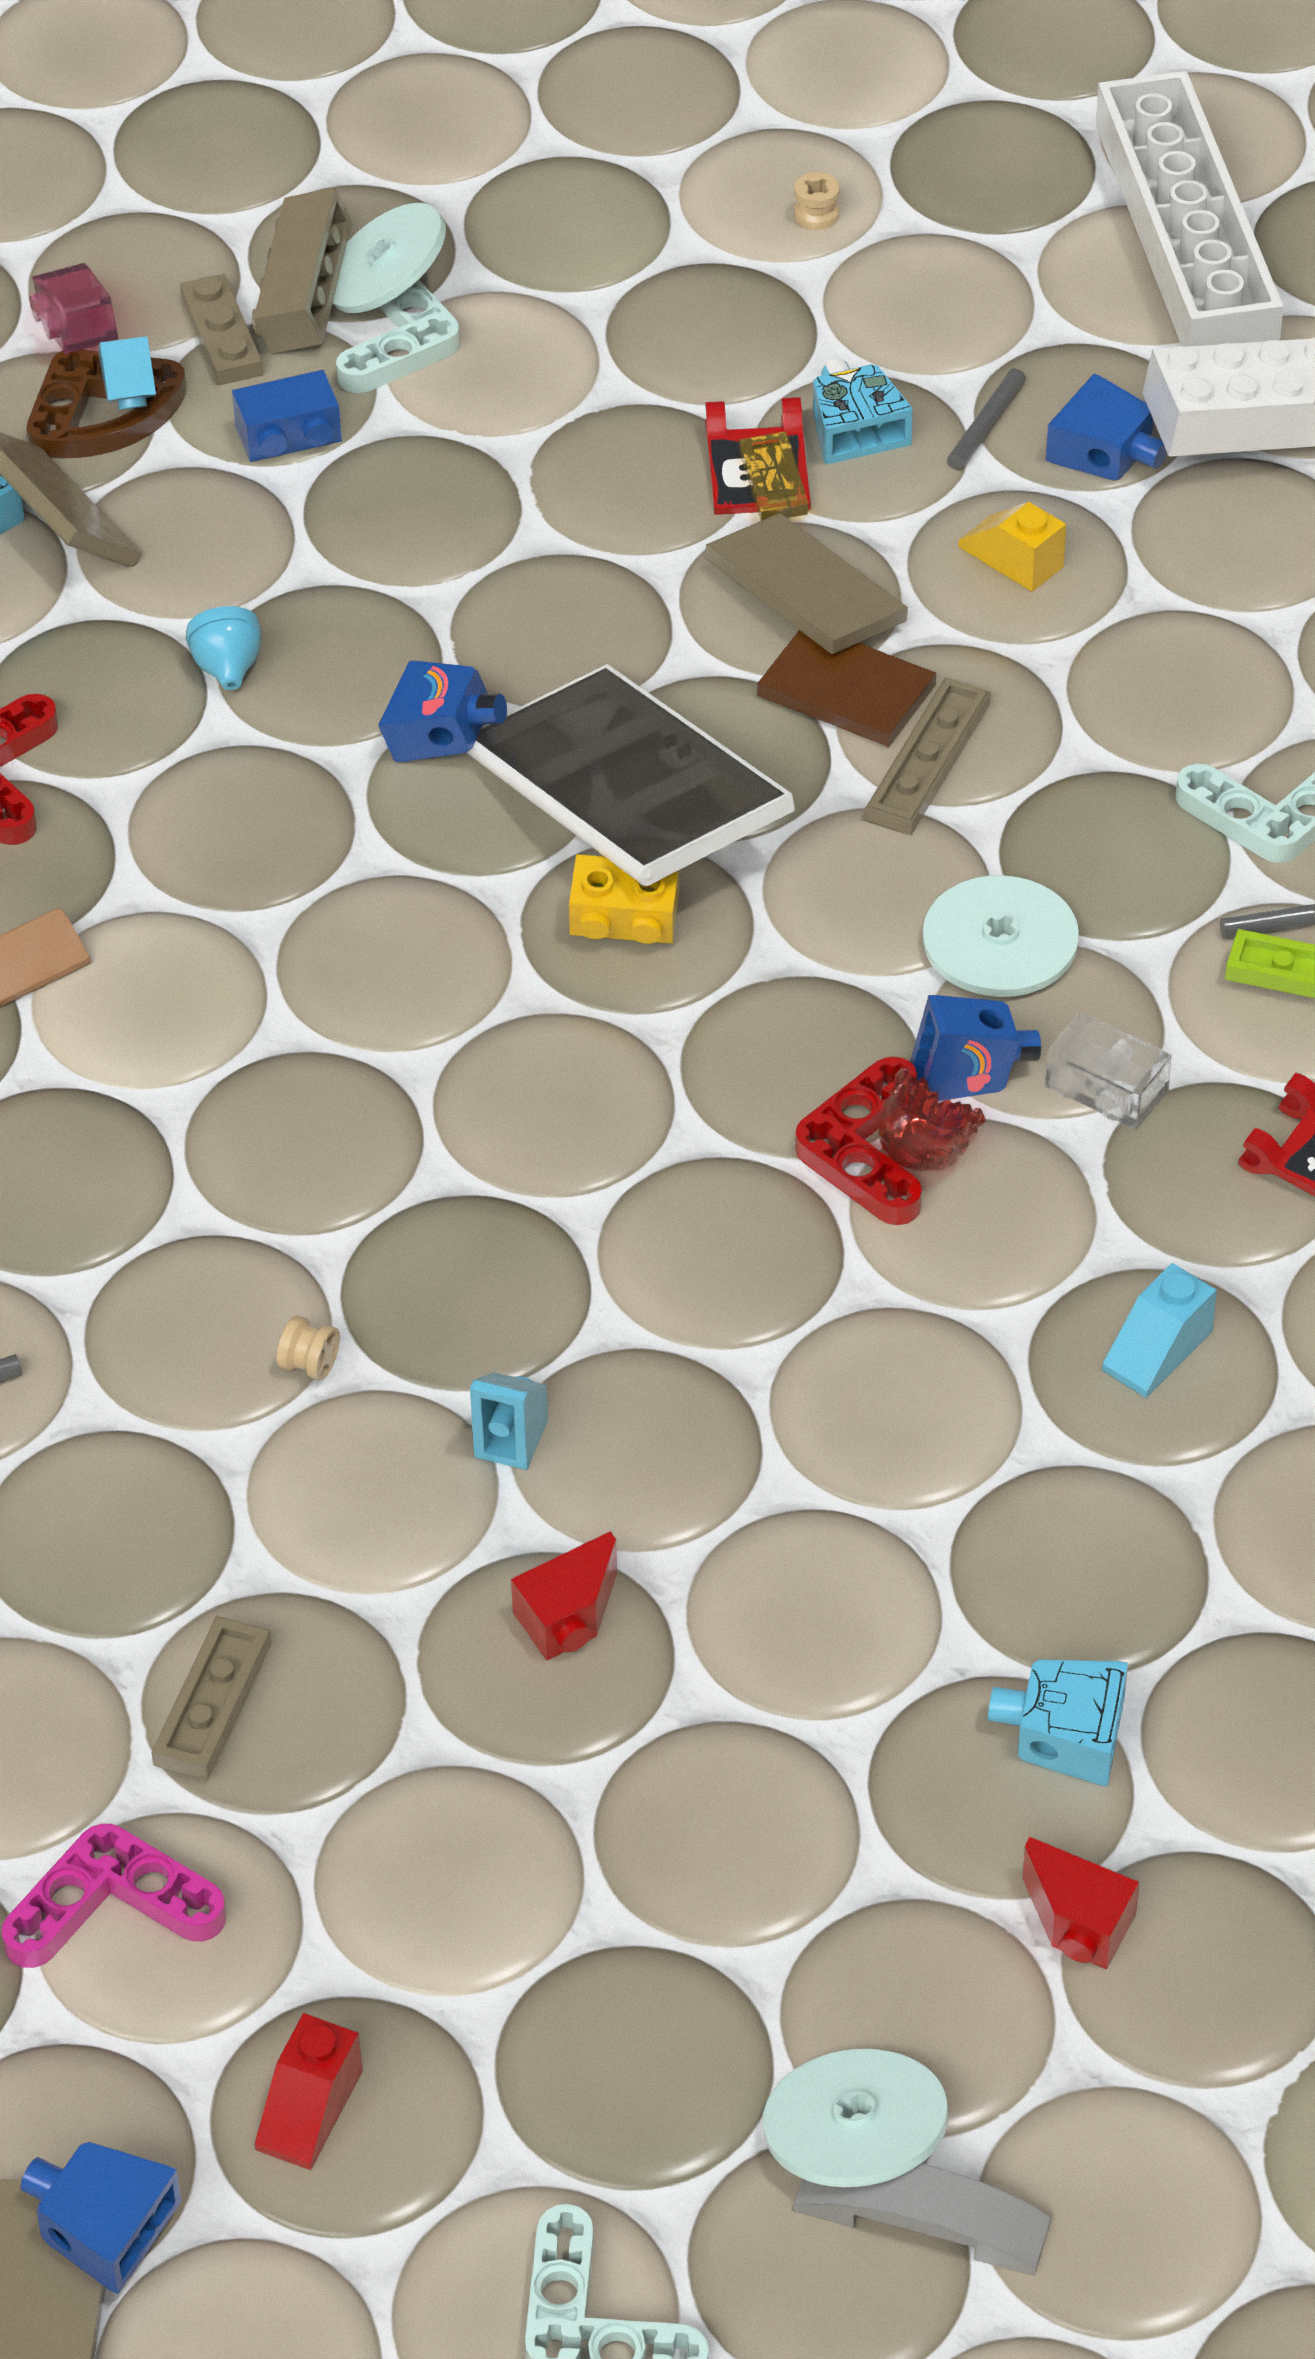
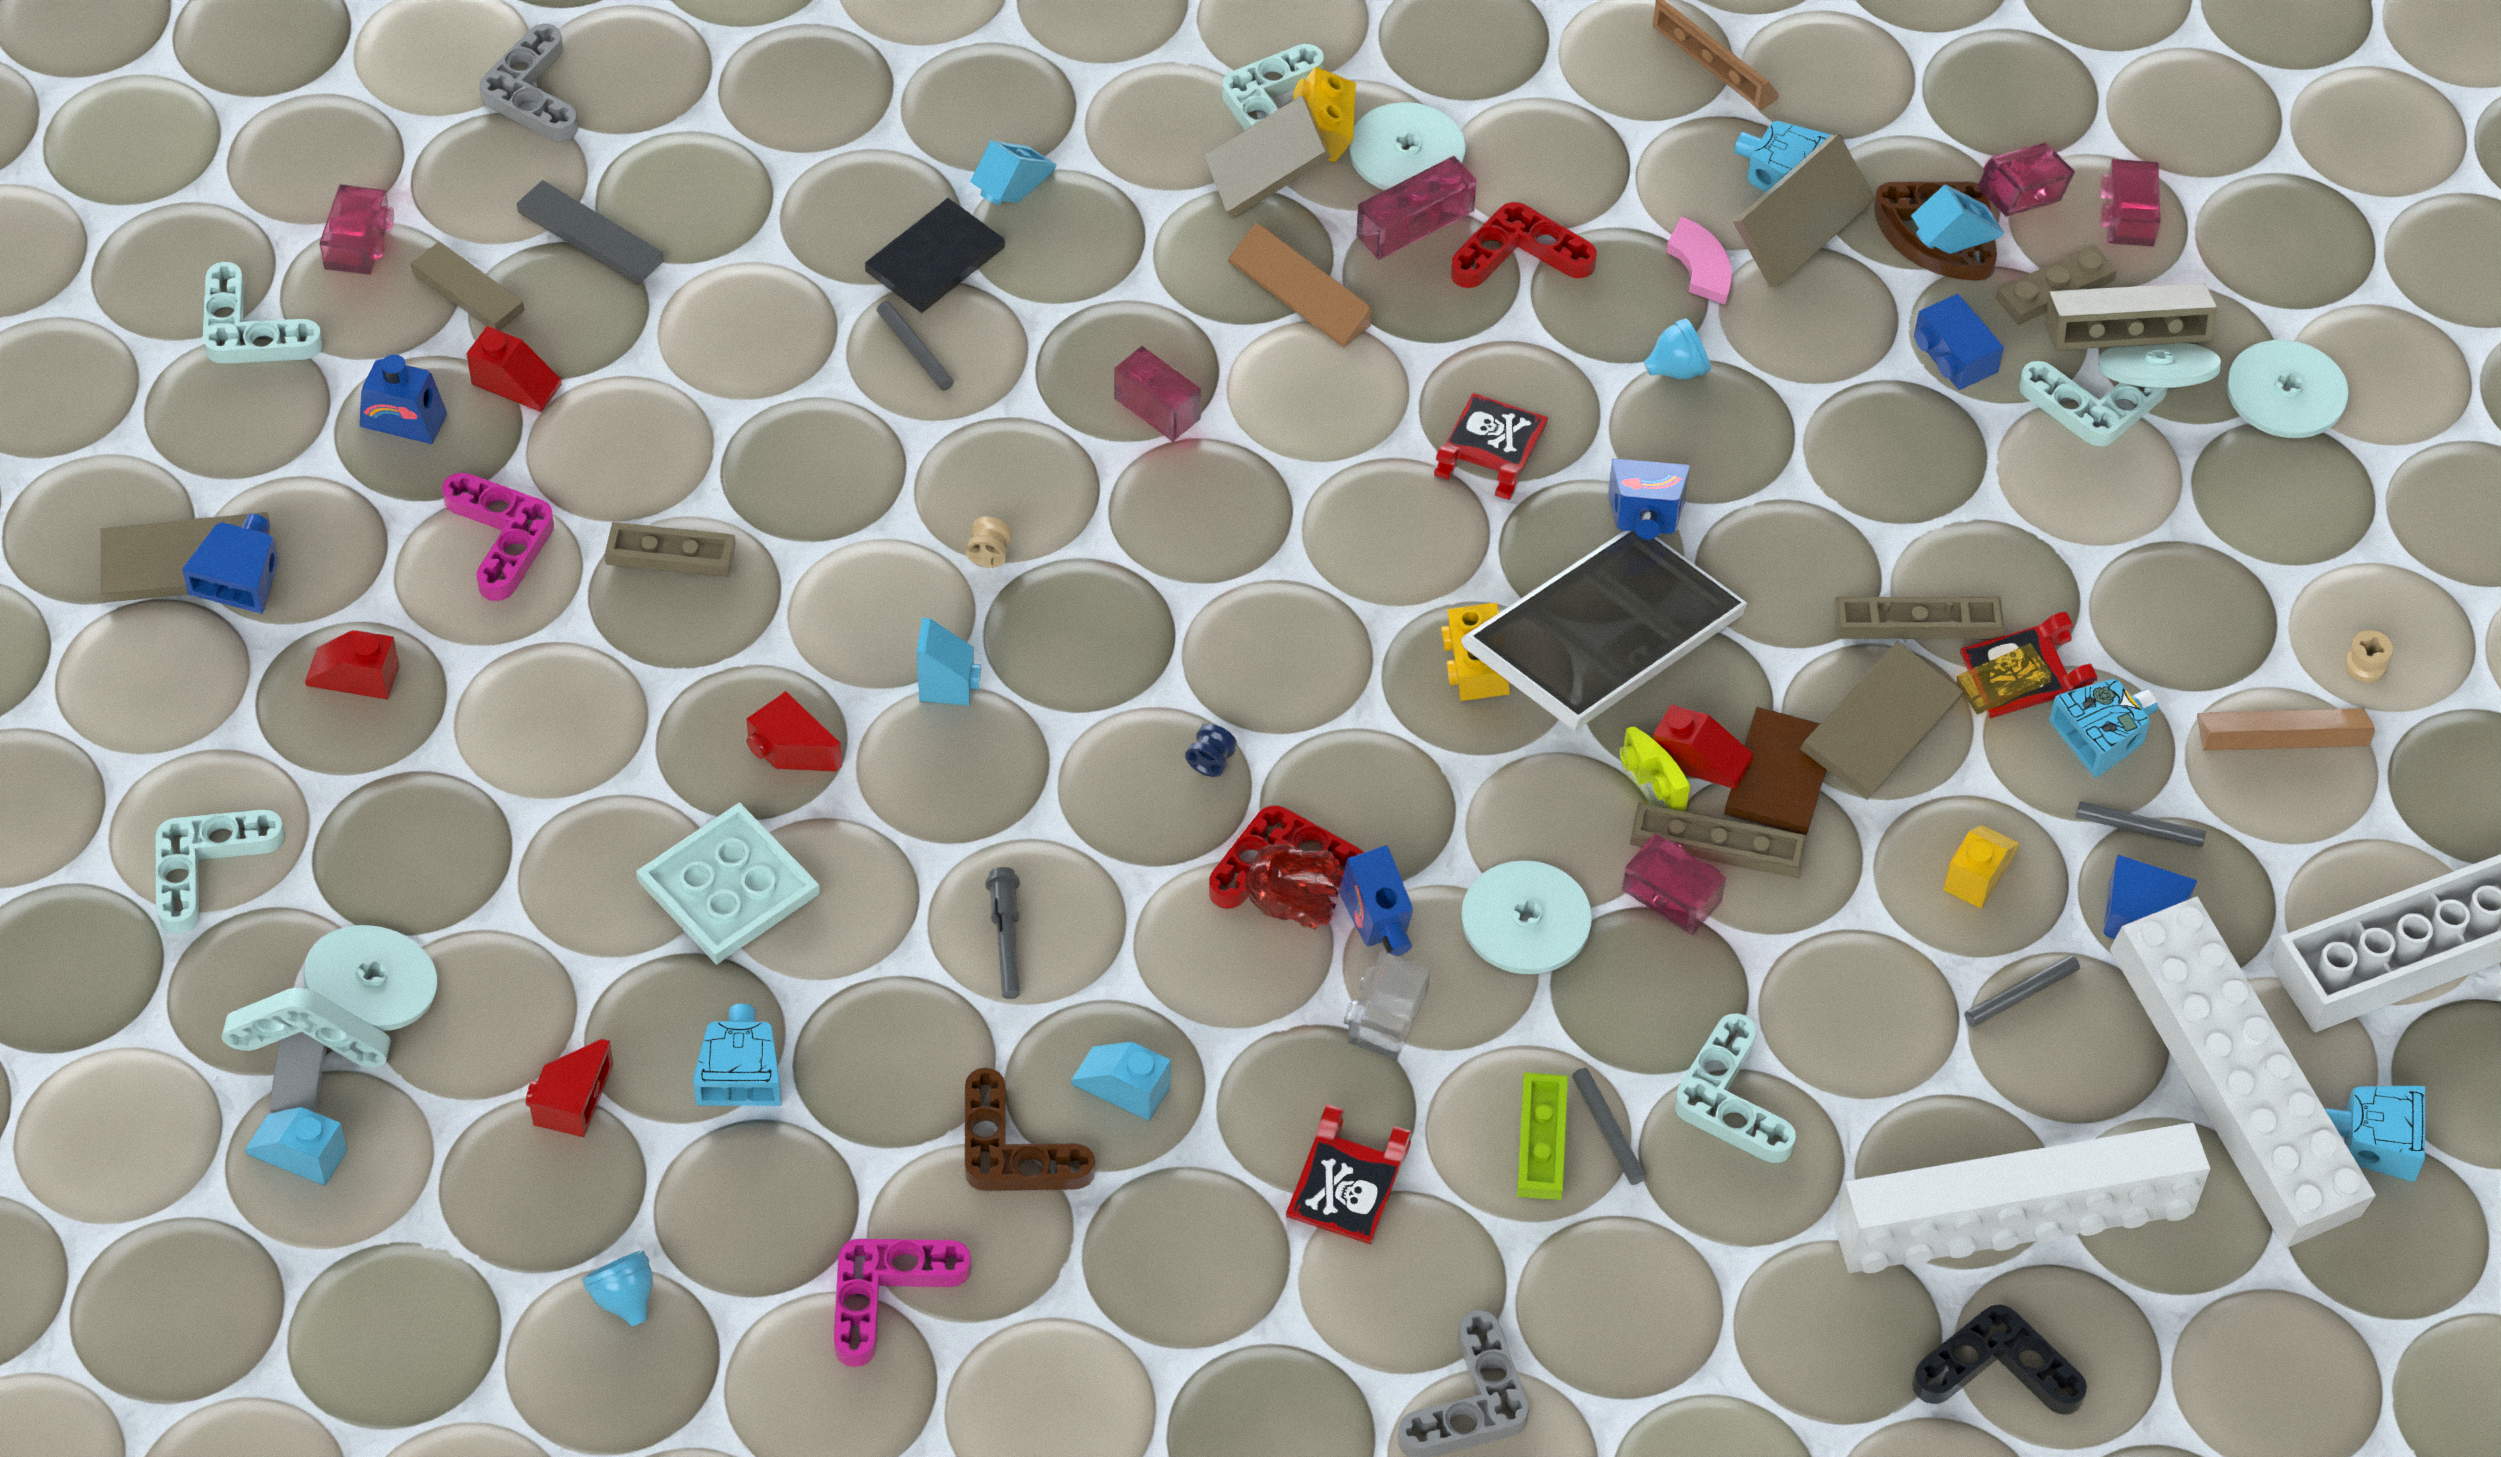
camera: 75 degrees right, 5 degrees up
(77, 610) = (1704, 259): none -> bright pink tile
(123, 1139) = (1157, 393): none -> clear pink brick
(133, 238) = (2131, 202): none -> clear pink brick
(291, 843) = (1494, 438): none -> flag
(438, 171) = (2315, 396): none -> light aqua piece
(667, 529) = (1918, 617): none -> dark tan plate
(698, 1175) = (1211, 750): none -> dark blue wheel
(782, 1698) = (728, 883): none -> light aqua plate
(812, 736) = (1702, 747): none -> red slope
(829, 776) = (1653, 764): none -> neon yellow slope
(861, 1413) = (1002, 887): none -> dark grey pin
(888, 284) = (2285, 729): none -> medium nougat slope
(947, 2161) = (312, 1014): none -> light aqua beam
(990, 794) = (1674, 883): none -> clear pink brick
(1105, 2231) = (300, 1143): none -> medium azure slope
(1183, 553) = (2022, 990): none -> dark grey bar
(1249, 1472) = (1006, 1157): none -> reddish brown beam

